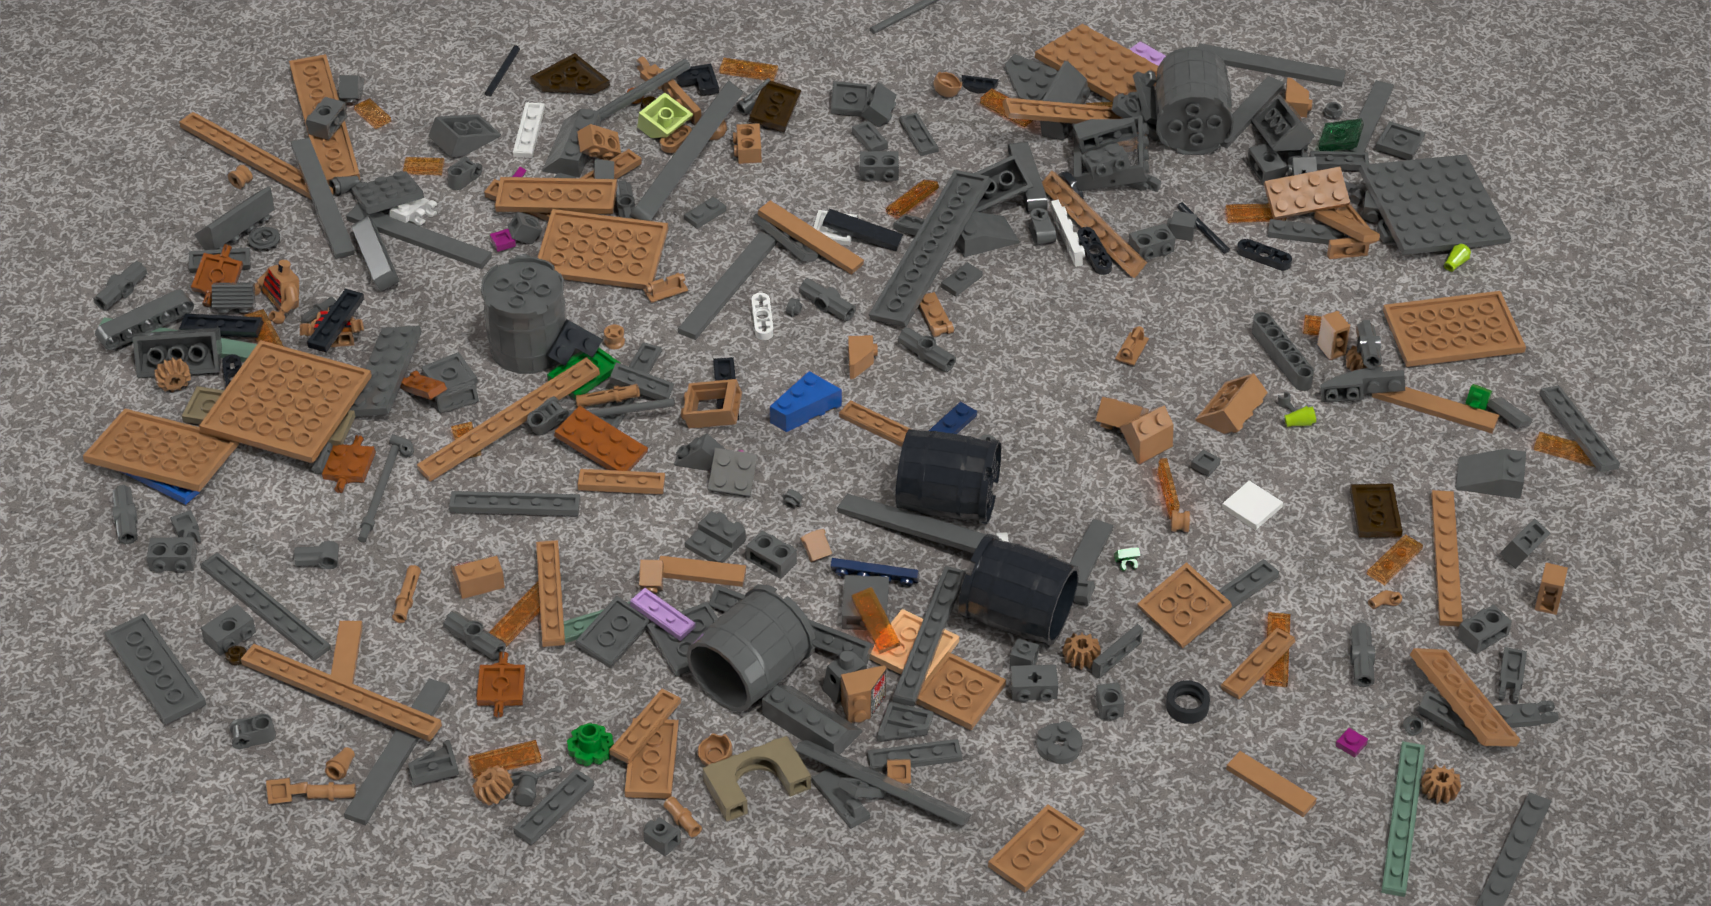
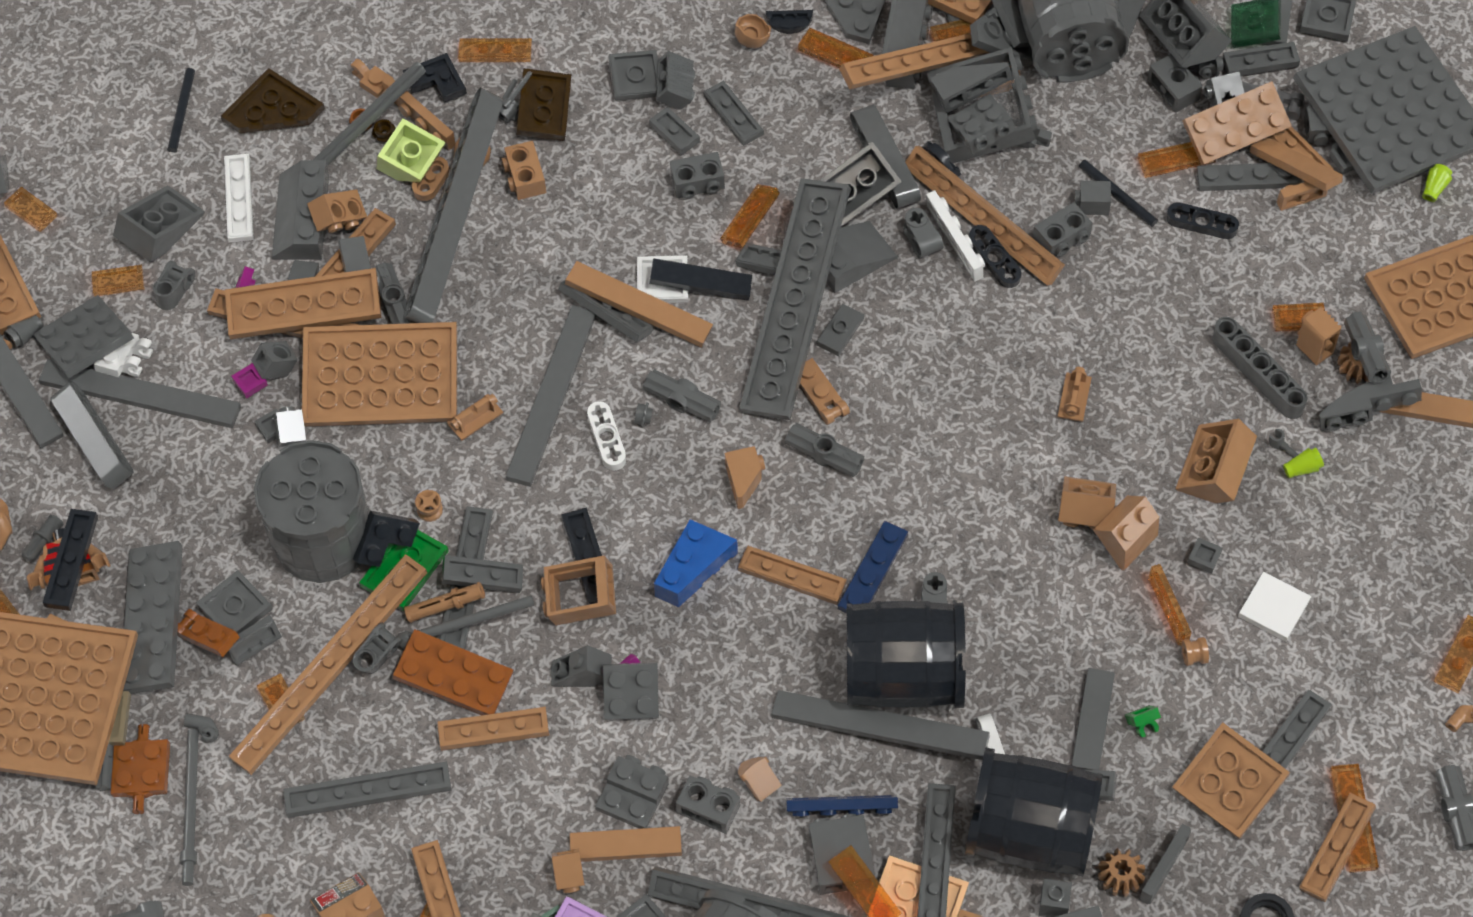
camera: 10 degrees left, 15 degrees up
(705, 212) = (495, 286): dark grey plate -> none
(792, 498) = (712, 712): dark grey plate -> none
(1376, 510) = (1425, 586): dark brown plate -> none

